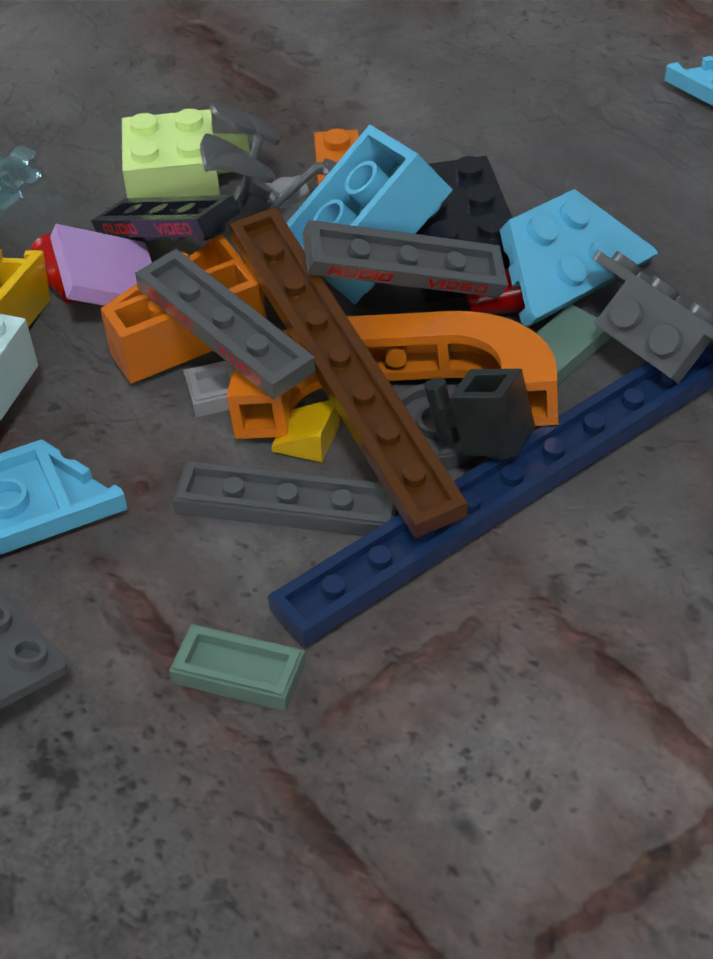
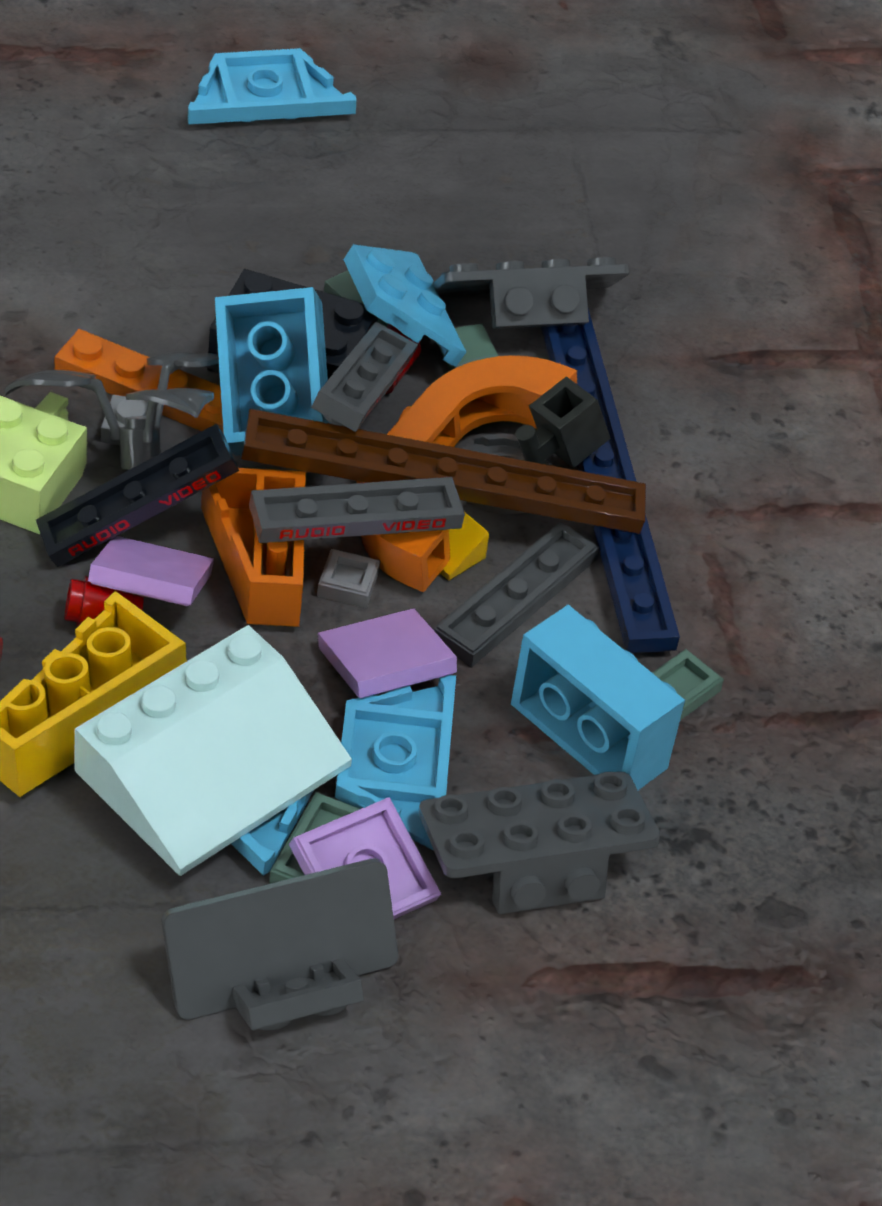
camera: 70 degrees left, 0 degrees up
(123, 441) = (387, 653): none -> lavender tile
(136, 598) = (596, 698): none -> medium azure brick

